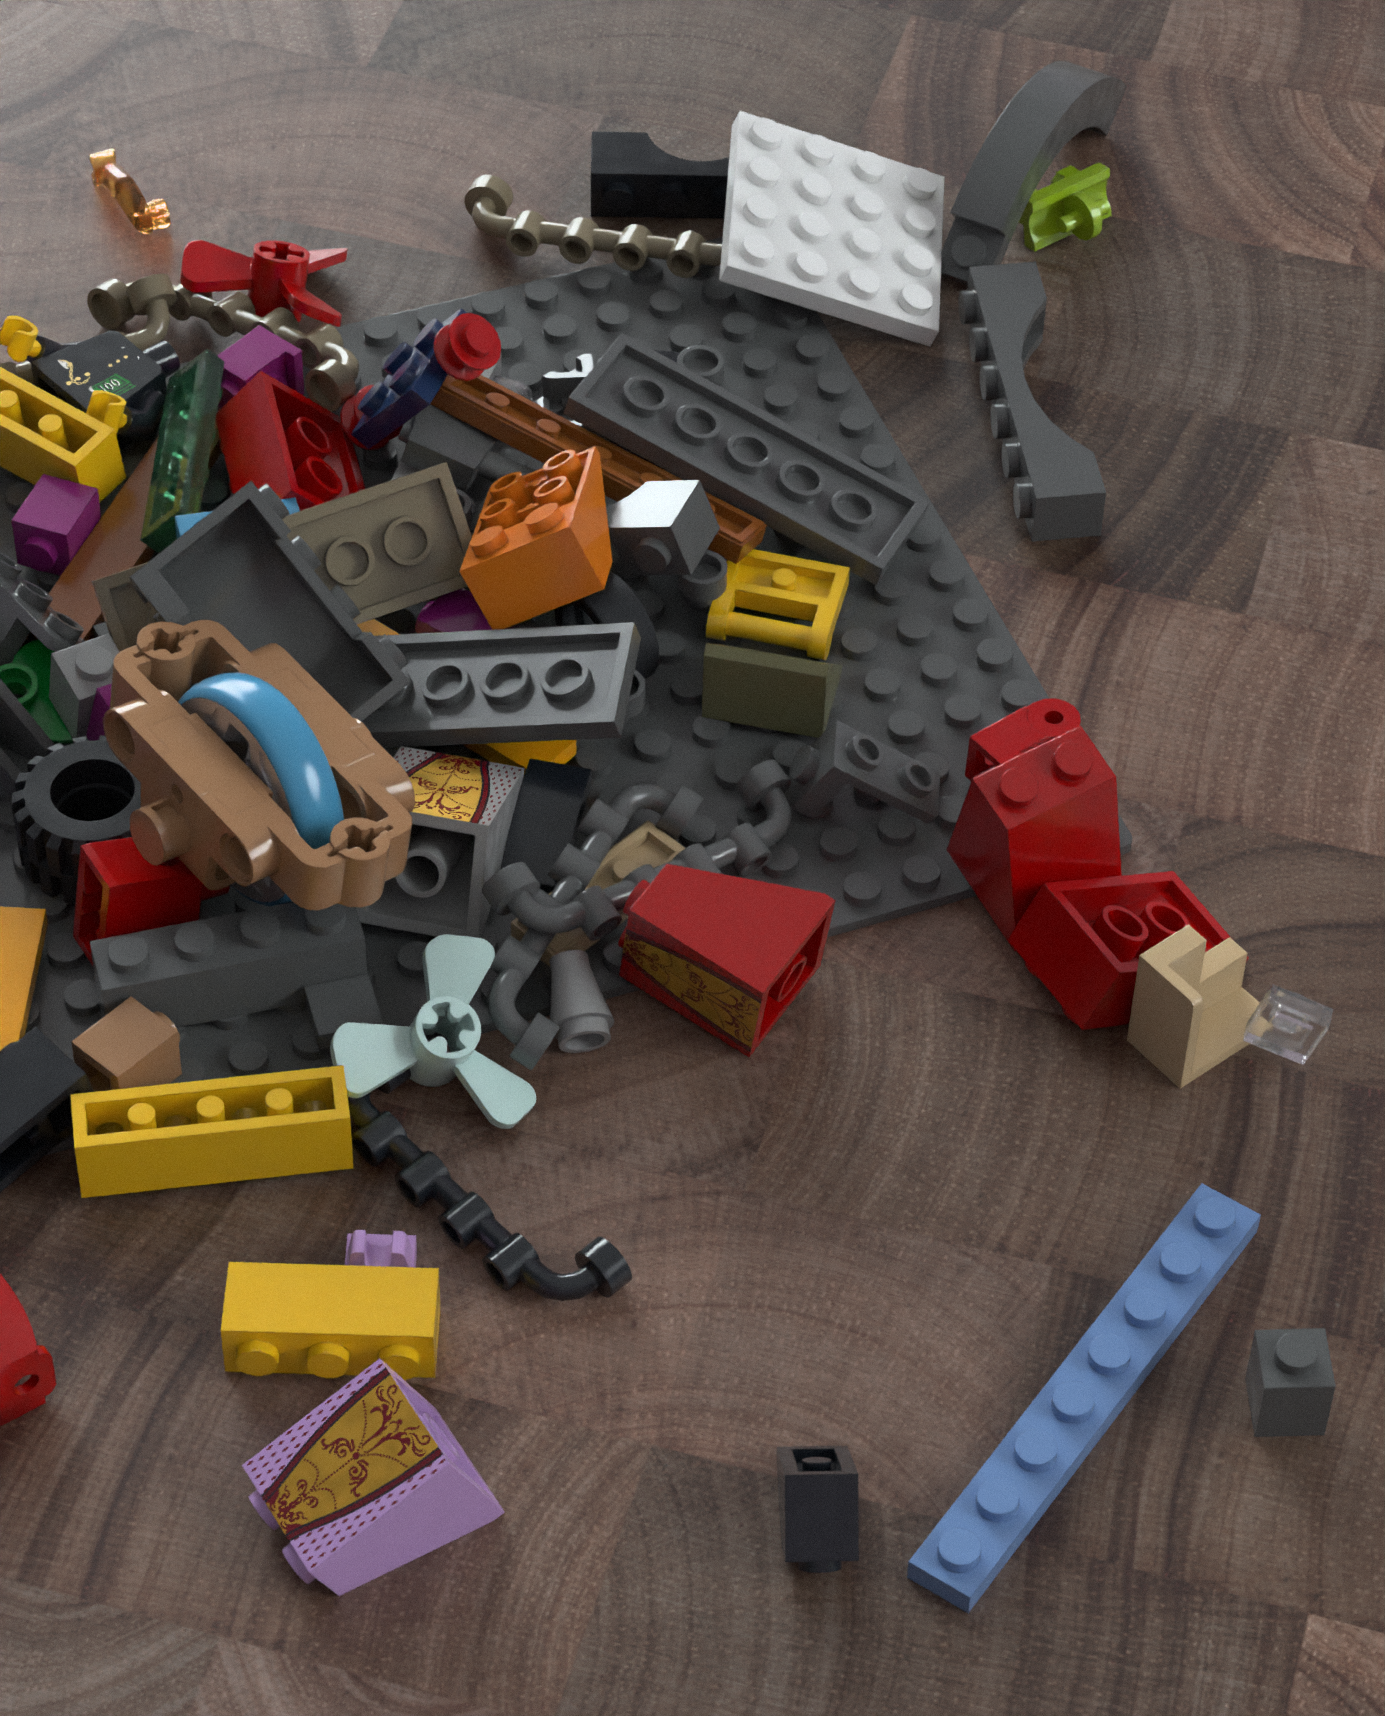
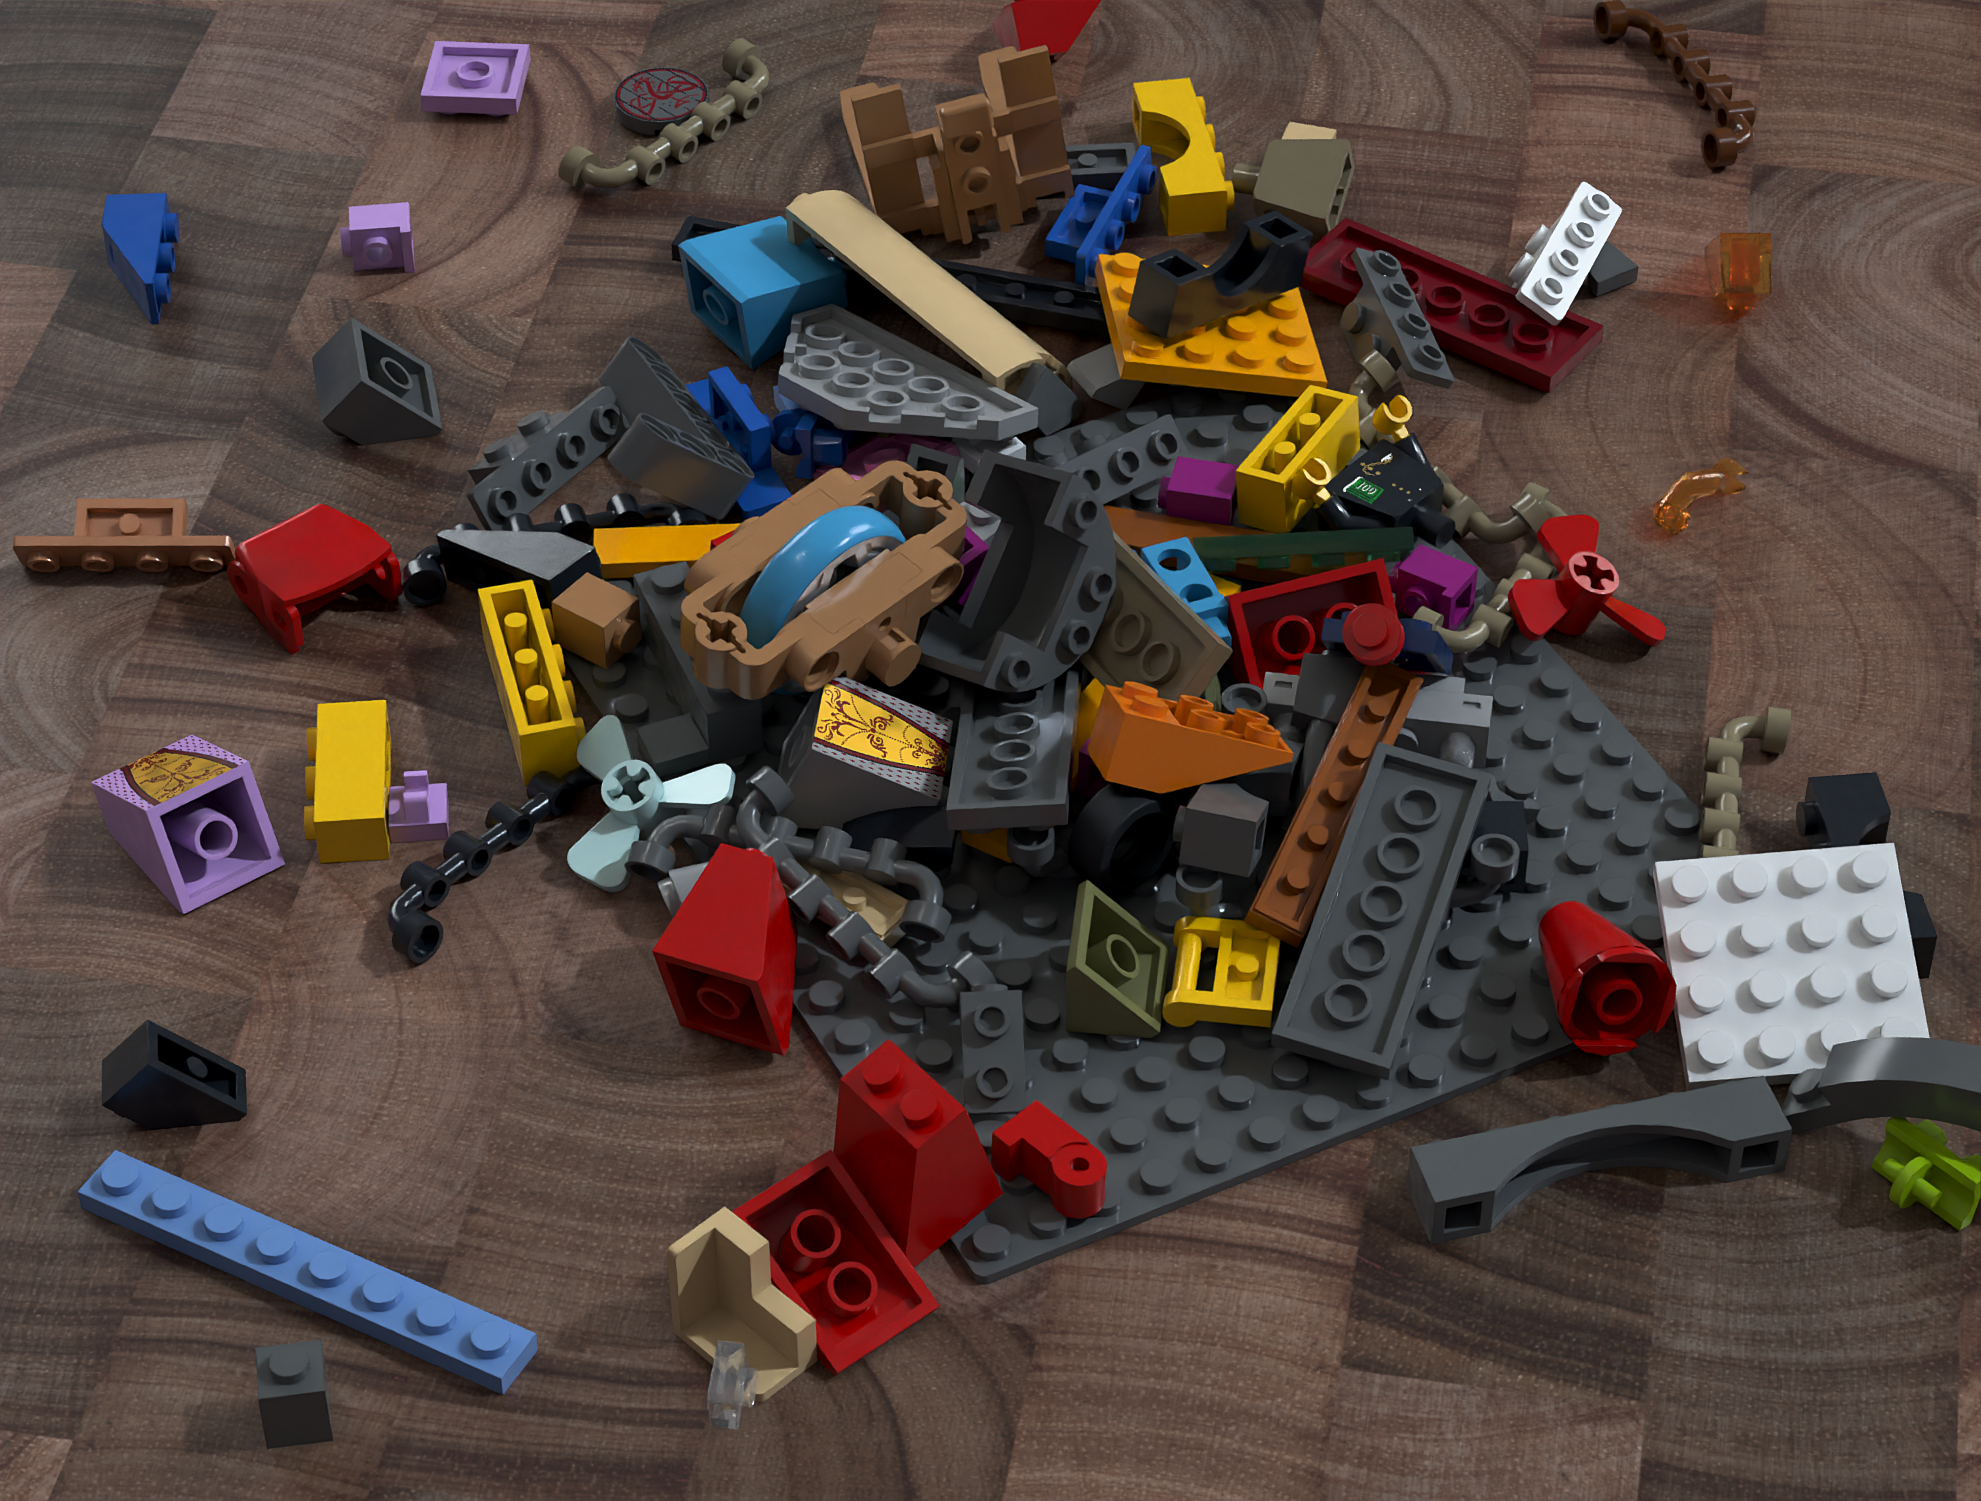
camera: 85 degrees right, 5 degrees down
(831, 341) = (1603, 980): none -> red cone

